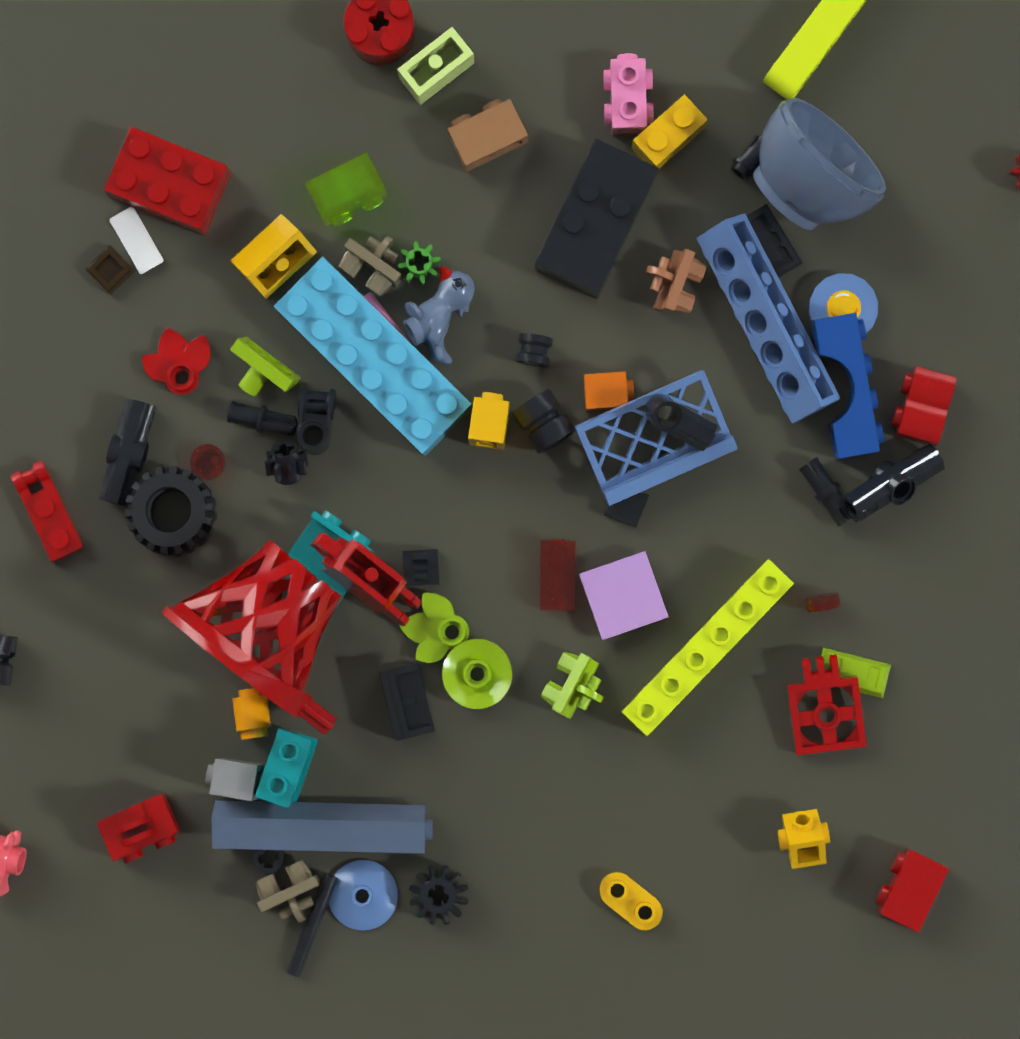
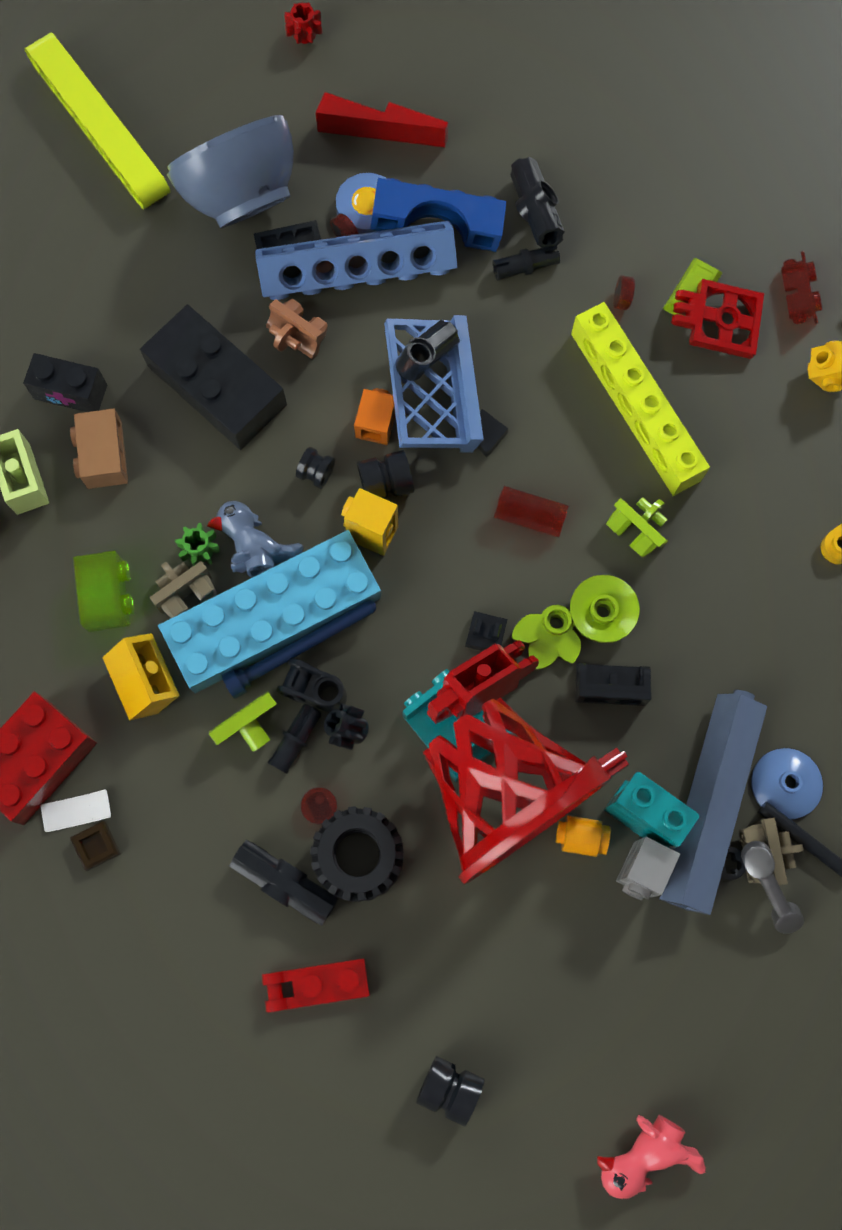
camera: 80 degrees left, 10 degrees down
(139, 827) = (668, 986): red brick -> none
(176, 357) = (206, 803): red plate -> none
(268, 879) = (760, 864): none -> flat silver bar
(300, 348) = (239, 680): none -> dark blue piece
(428, 900) = (817, 698): black gear -> none
(543, 76) = (65, 383): none -> black brick
(623, 595) = (568, 457): lavender tile -> none
(627, 86) = (112, 318): bright pink brick -> none
(669, 133) = (157, 288): yellow brick -> none
(748, 160) = (212, 243): black pin -> none
(802, 294) = (343, 226): none -> clear red tile
(873, 793) = (804, 302): none -> clear red hinge
(924, 406) = (476, 161): red brick -> none
(942, 306) = (396, 123): none -> red slope

